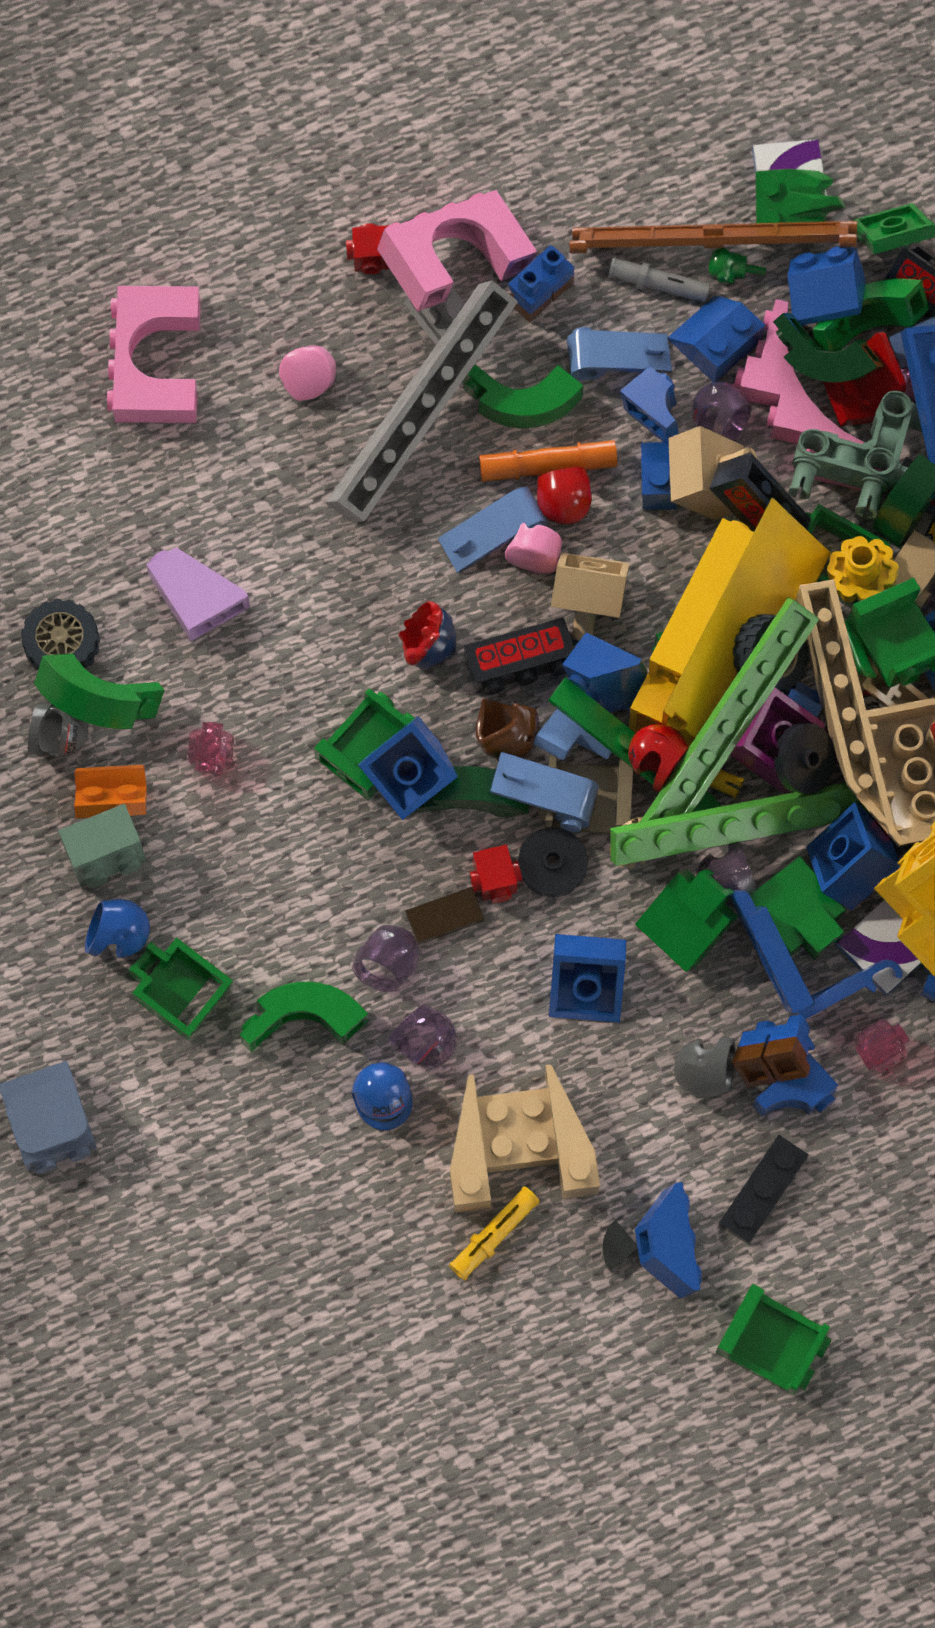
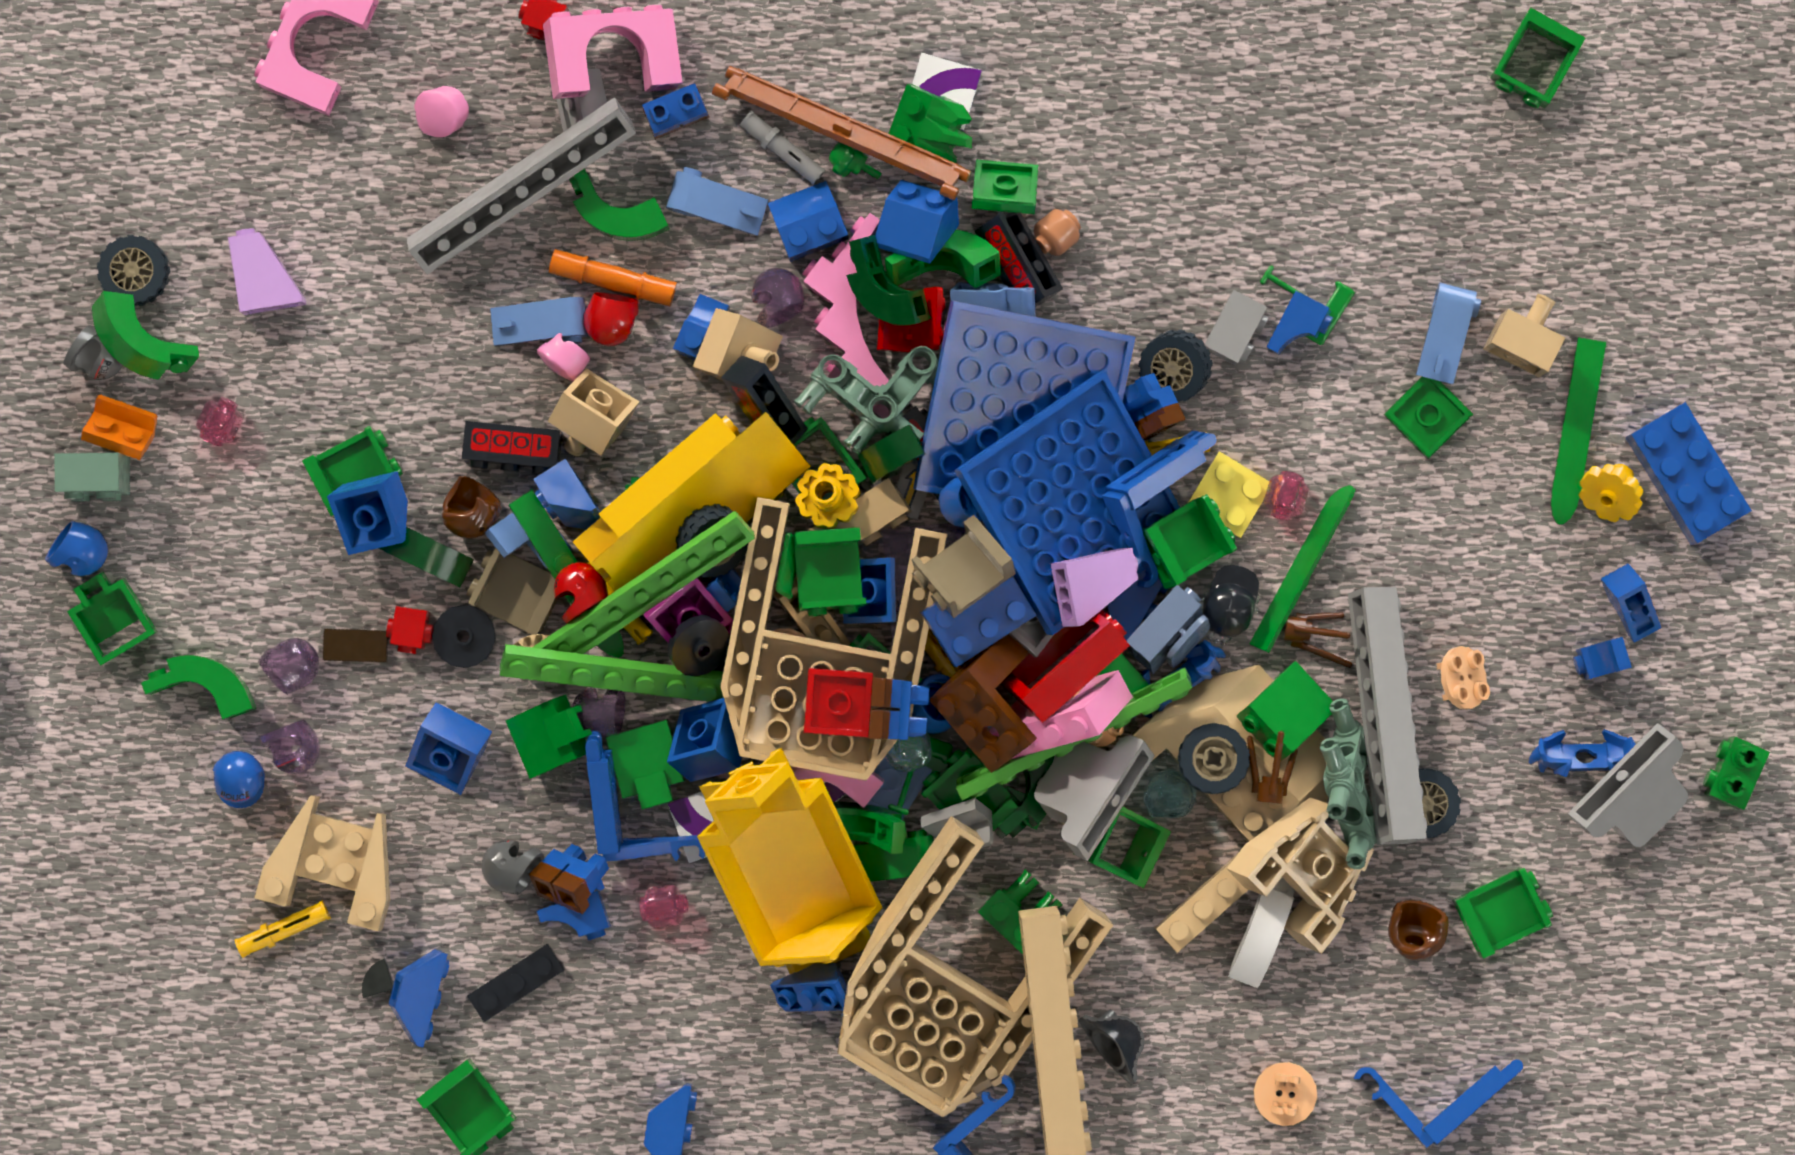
camera: 25 degrees right, 15 degrees up
(428, 636) = (441, 398): red hair -> none
(546, 788) = (478, 577): medium blue door -> none
(650, 402) = (724, 262): arch -> none

